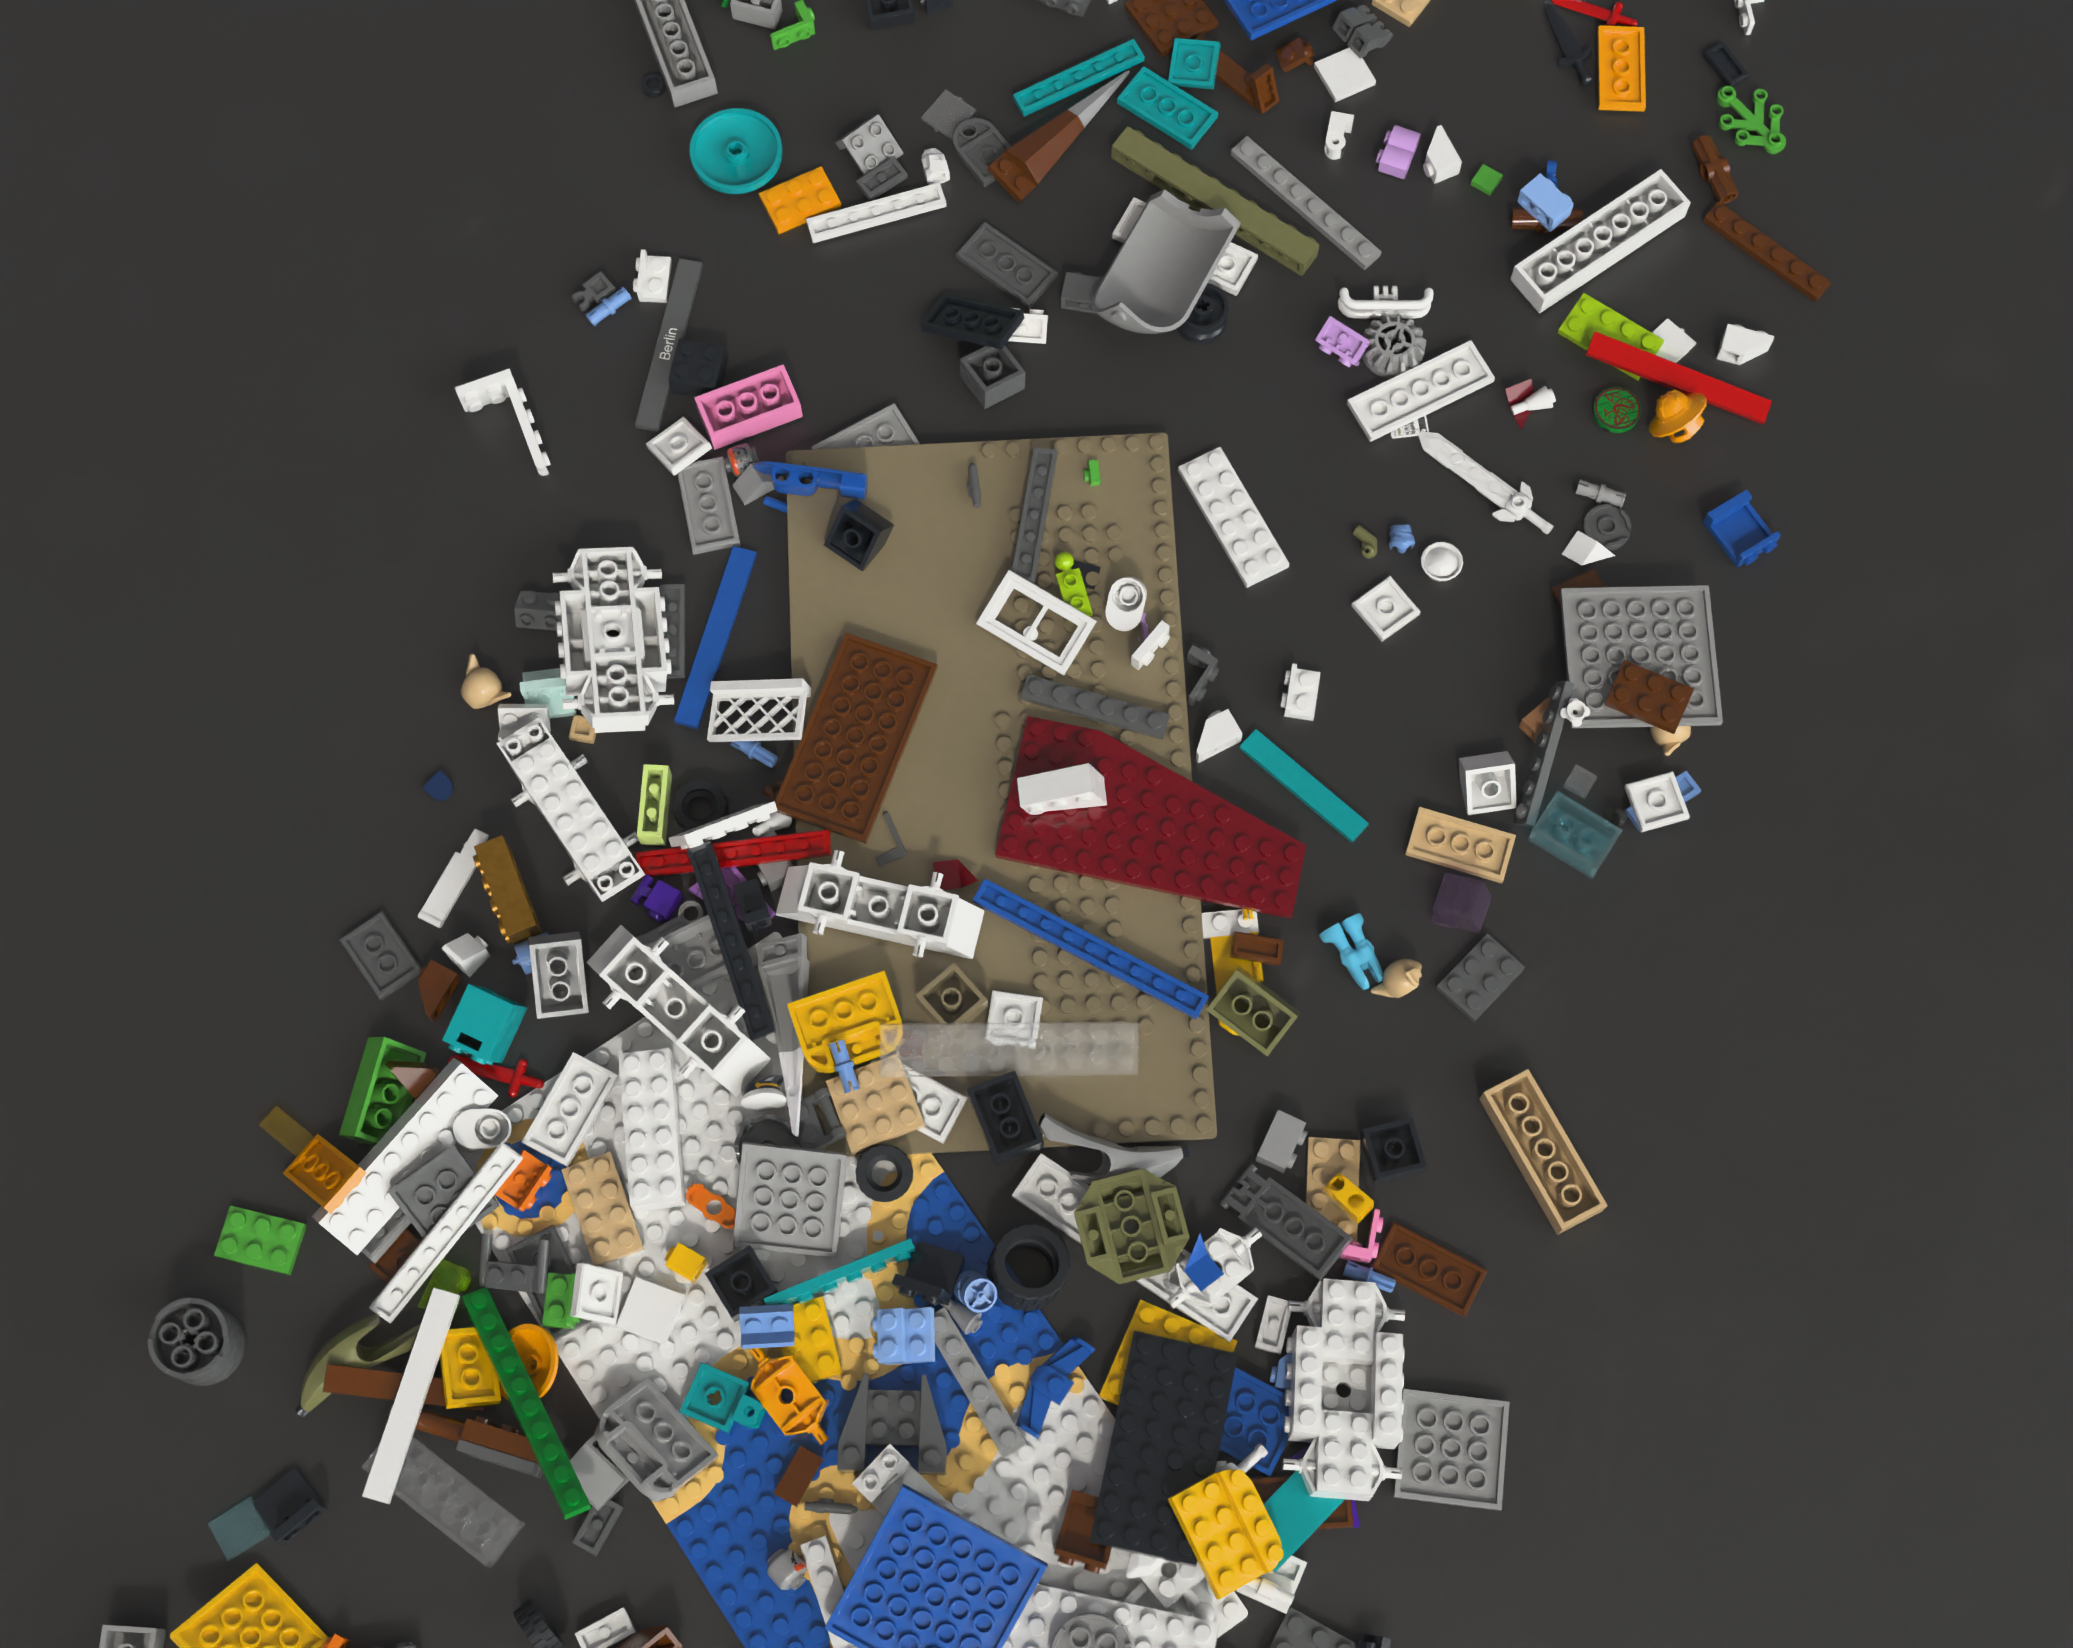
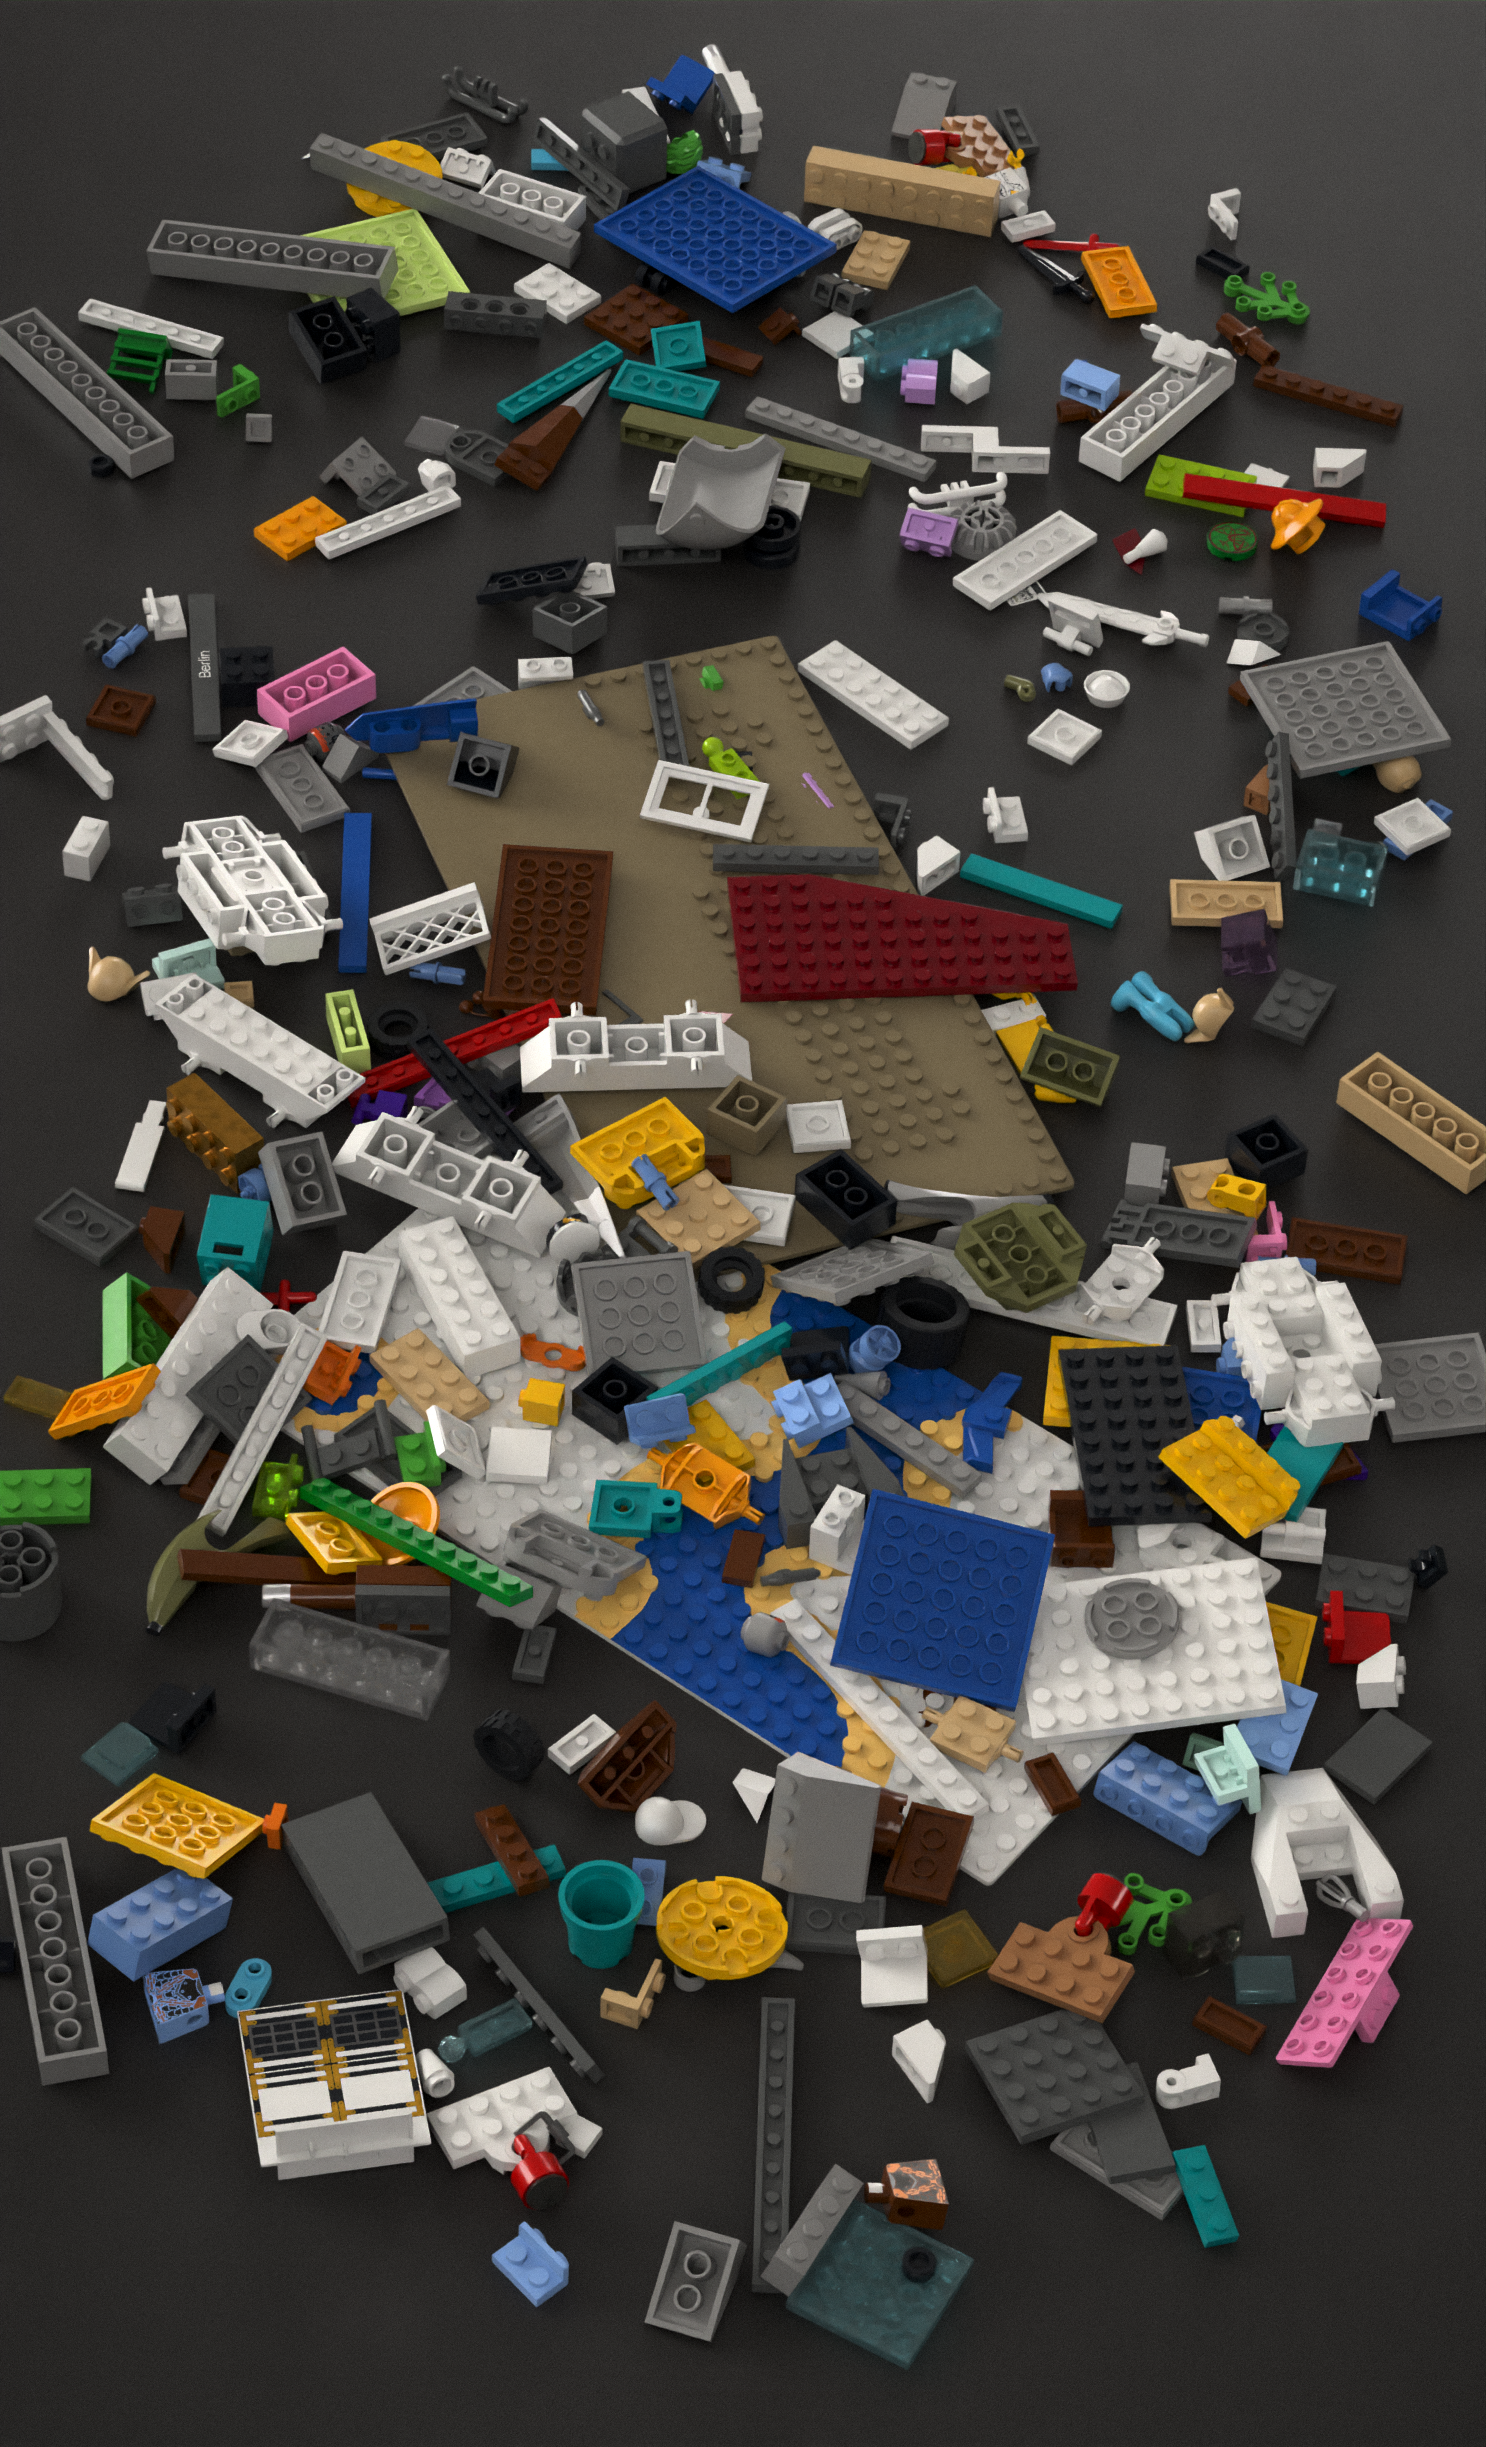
camera: 20 degrees left, 25 degrees down
(411, 1396) = (282, 1568): white tile -> none
(439, 787) = (95, 1073): dark blue tile -> none
(467, 953) = (187, 1196): white slope -> none
(504, 535) = (86, 848): none -> white piece
(584, 377) = (121, 710): none -> reddish brown tile
(717, 828) = (441, 1017): white plate -> none
(736, 151) = (216, 495): teal dish -> none
(776, 822) = (486, 1016): white cone -> none
(799, 74) = (259, 427): none -> light grey tile
(951, 429) = (543, 671): none -> white bracket
(983, 1202) = (852, 1272): none -> light grey plate
(1006, 265) = (543, 538): dark grey tile -> none
(1007, 1047) = (803, 1138): clear plate -> none
(1062, 789) = (793, 915): white wedge -> none
(1090, 949) = (877, 1050): blue plate -> none
(1126, 603) = (794, 766): white cap -> none
(1156, 639) = (832, 798): white plate -> none
(1201, 1267) = (1106, 1280): blue sticker -> none
(1256, 948) = (1060, 1022): reddish brown tile -> none
(1263, 88) = (760, 350): reddish brown tile -> none
(1421, 96) = (926, 331): none -> clear light blue brick
(1428, 250) = (985, 449): none -> white bracket
(1434, 489) = (1075, 623): none -> white plate
(1486, 179) = (1019, 389): bright green tile -> none
(1580, 707) = (1299, 756): white plate -> none
(1639, 188) = (1183, 354): none -> white bracket
(1649, 697) = (1368, 732): reddish brown plate -> none

